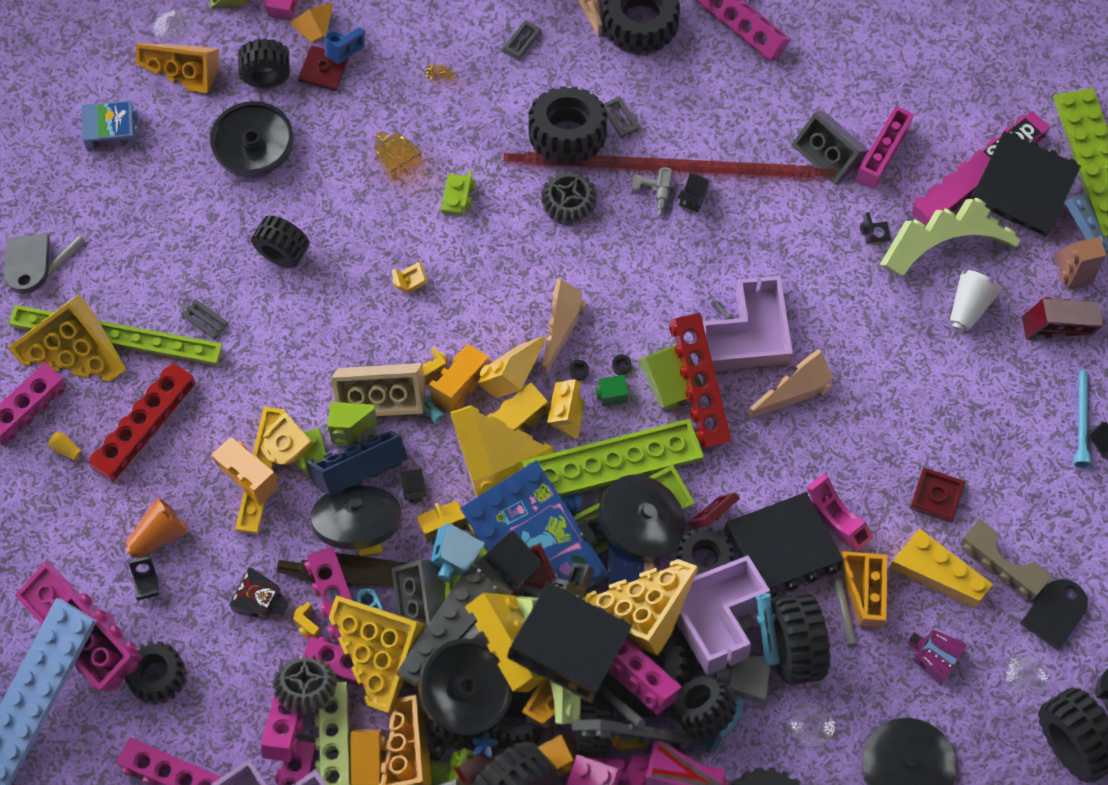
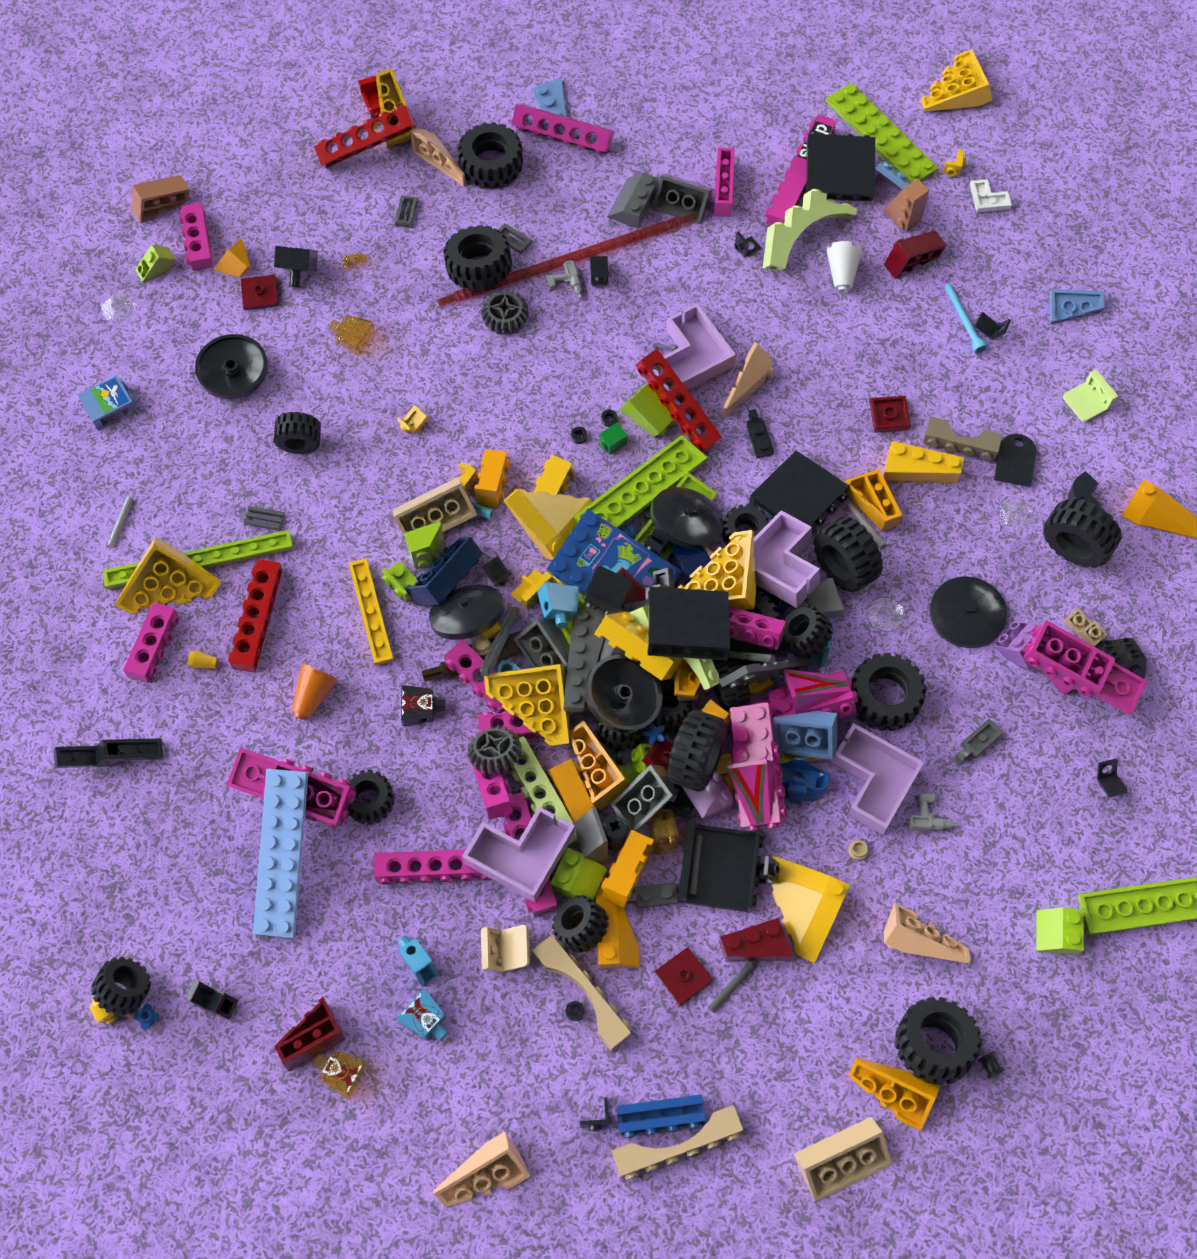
camera: 25 degrees left, 0 degrees up
(27, 259) = (94, 531): tile -> none
(145, 582) = (323, 734): black bracket -> none
(190, 65) = (148, 331): light orange wedge -> none
(246, 470) = (362, 614): light orange wedge -> none
(263, 63) = (212, 304): black tyre -> none
(285, 441) = (381, 580): yellow tile -> none
(306, 627) = (465, 709): yellow bracket -> none
(340, 47) = (264, 269): blue plate -> none
(352, 562) = (481, 646): none -> tan plate
(373, 565) = (499, 641): none -> dark grey axle
(375, 50) = (295, 261): none -> black brick
(457, 194) = (416, 343): lime bracket -> none
(510, 370) = (529, 453): yellow slope -> none
(566, 309) = (546, 395): light nougat wedge -> none
(566, 408) = (586, 463): yellow bracket -> none
(714, 510) = (735, 492): dark red plate -> none
(764, 602) = (819, 550): medium azure pin -> none
(775, 127) = (634, 199): none -> dark grey slope
(776, 456) = (759, 435): none -> black hinge
(837, 516) = (837, 463): dark pink arch -> none
(936, 653) = (948, 525): magenta torso -> none

